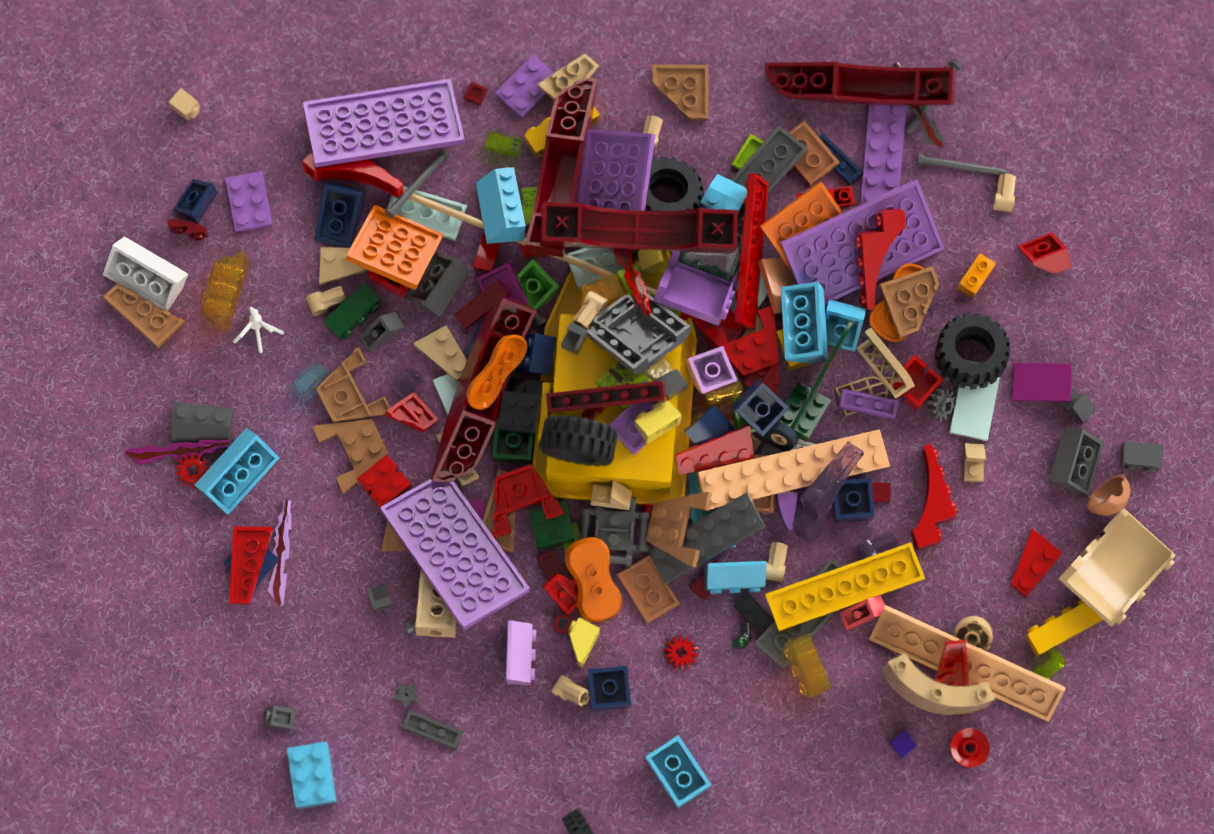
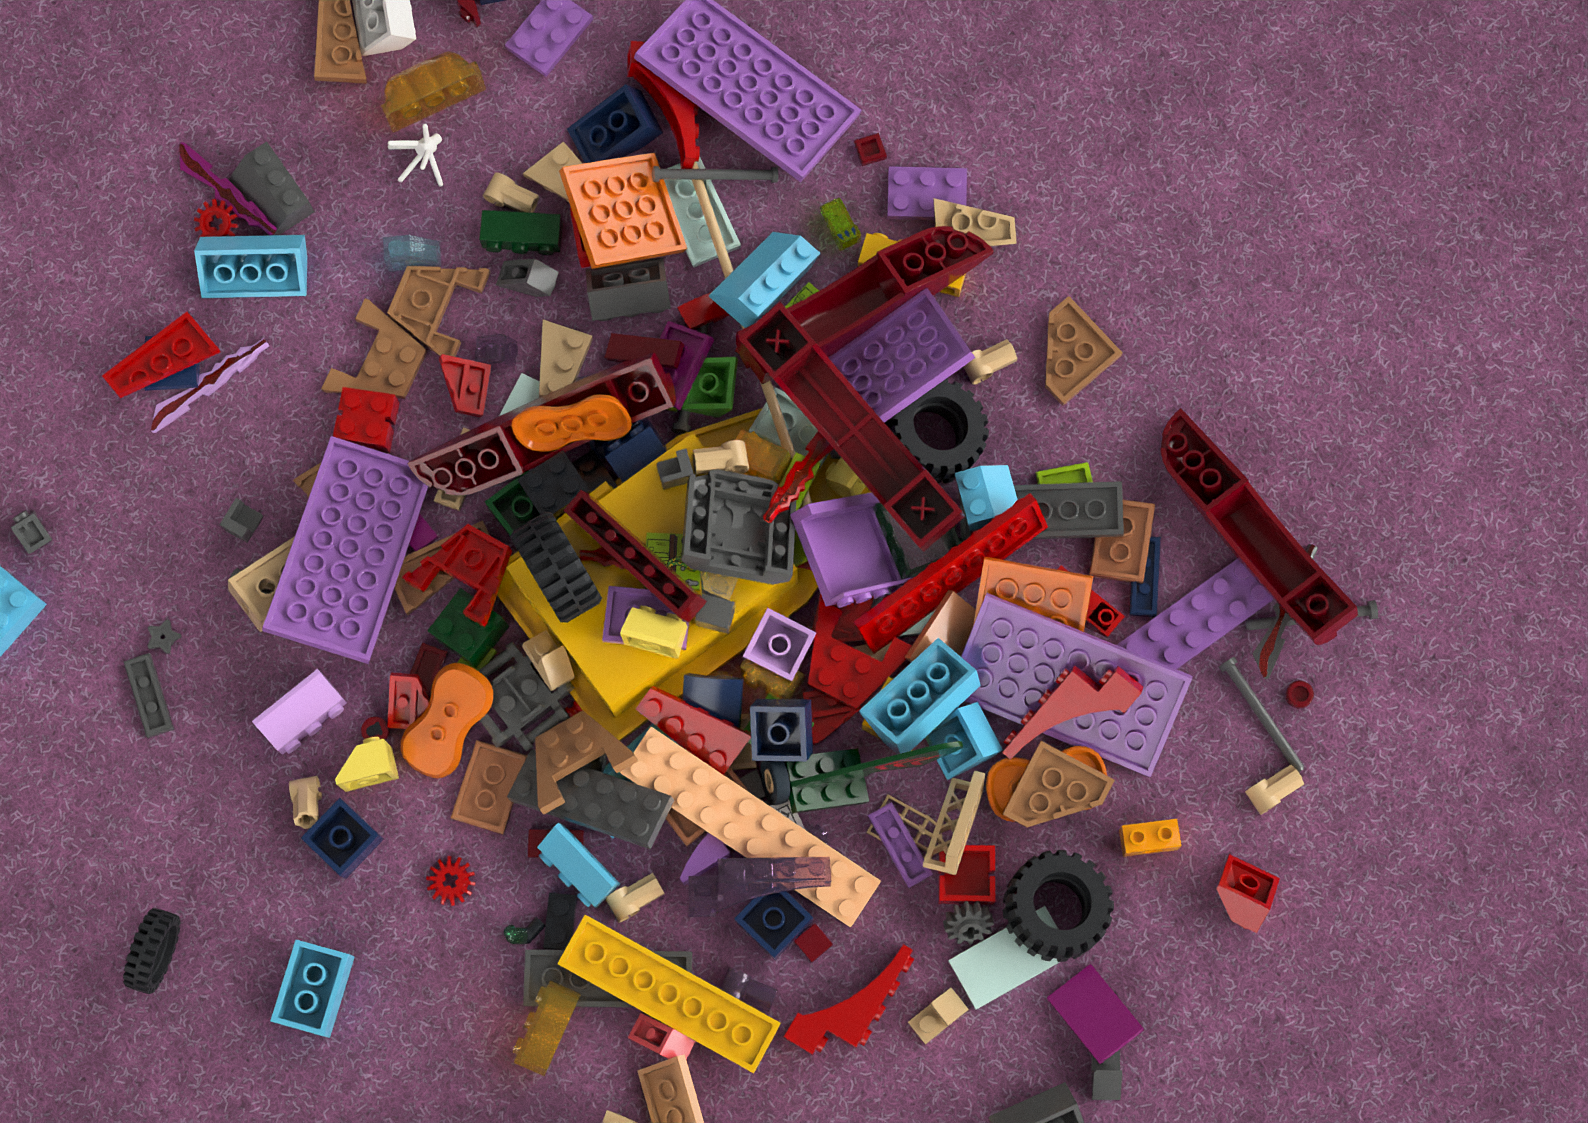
camera: 55 degrees right, 0 degrees up
(966, 138) = (1299, 694): none -> dark red tile

